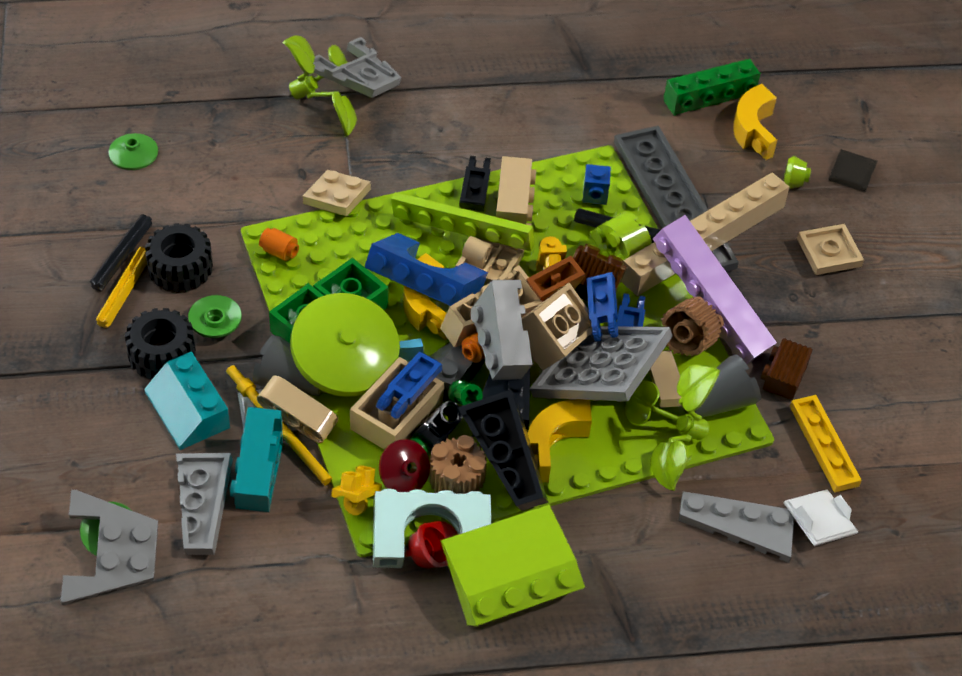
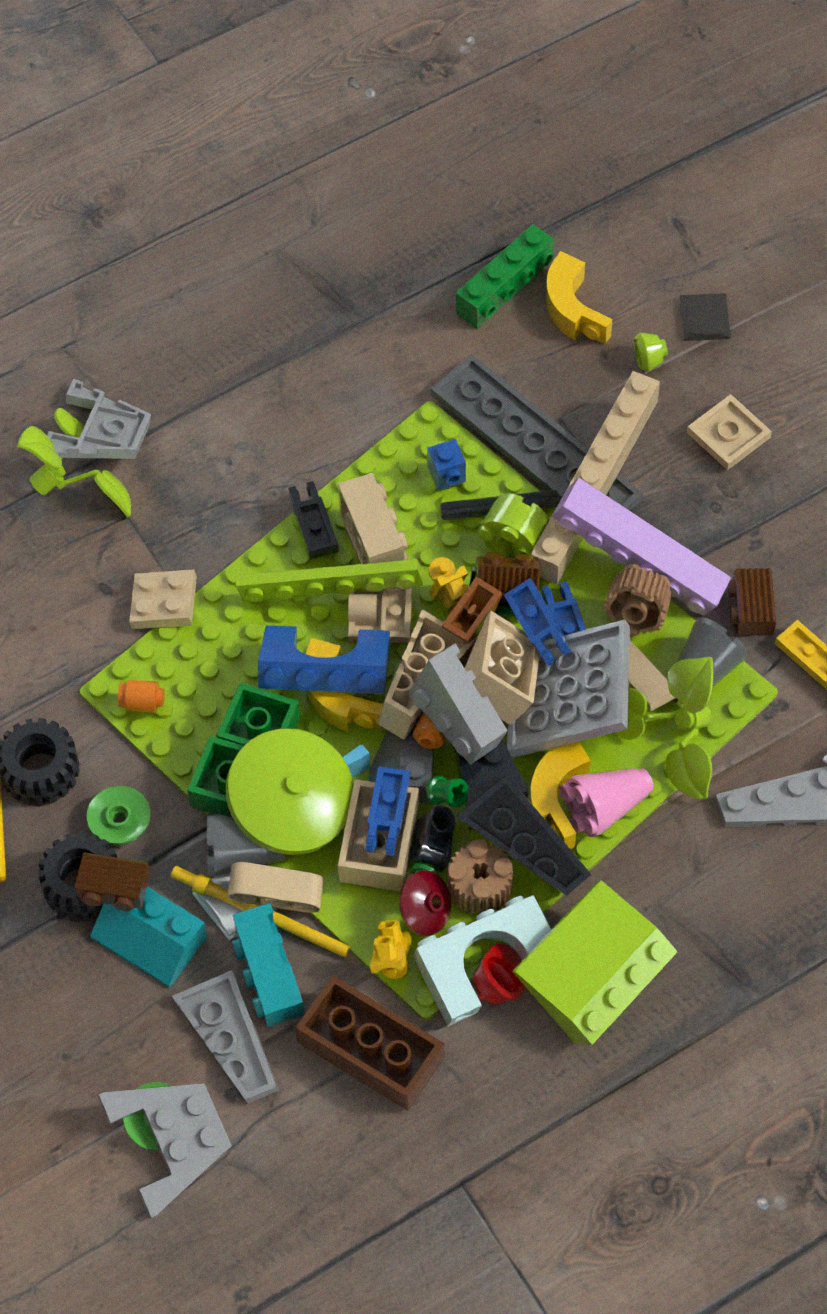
camera: 20 degrees left, 10 degrees up
(174, 348) = (112, 882): none -> reddish brown brick
(303, 549) = (370, 1042): none -> reddish brown brick
(588, 452) = (603, 798): none -> bright pink cone

